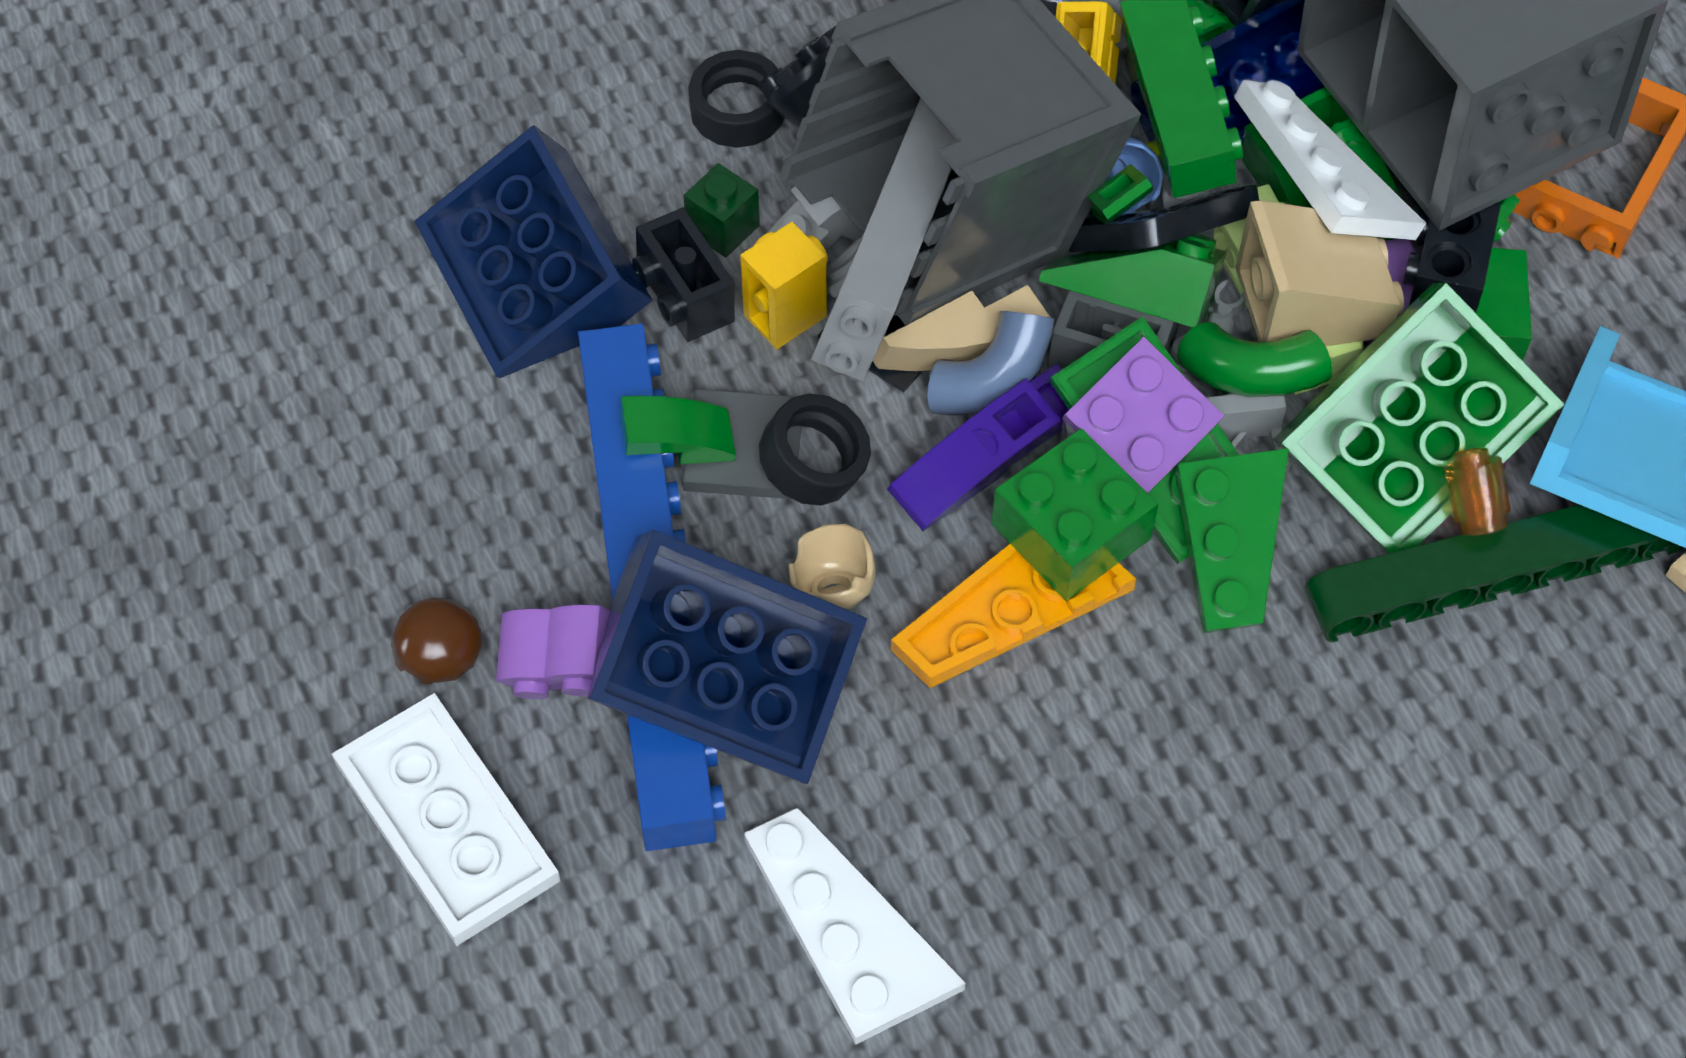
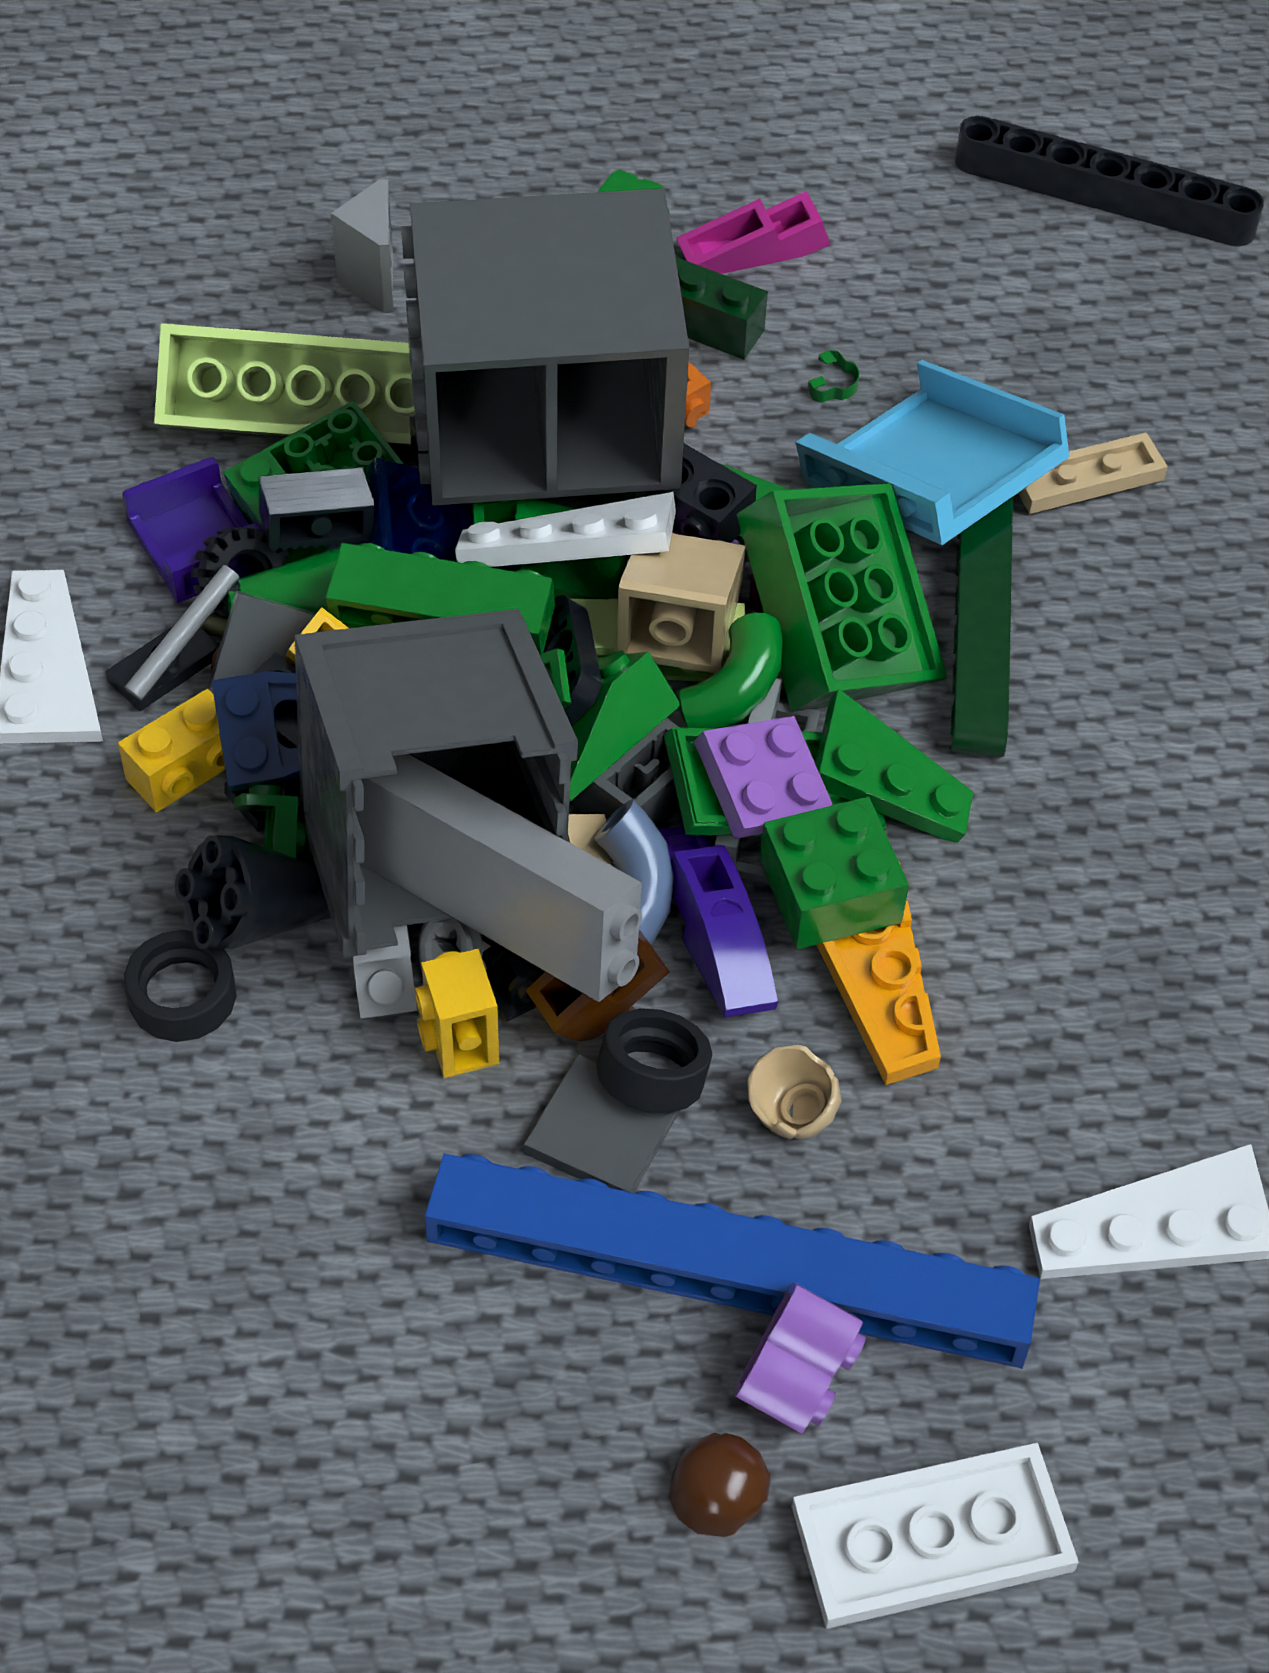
camera: 70 degrees left, 5 degrees down
(530, 255) = (284, 1244): dark blue slope -> none
(677, 425) = (584, 1169): green slope -> none
(684, 275) = (394, 1099): black brick -> none
(723, 209) = (324, 1042): dark green brick -> none
(724, 655) = (876, 1206): dark blue slope -> none
(885, 394) = (580, 1016): none -> reddish brown brick
(1477, 491) = (935, 581): clear orange brick -> none

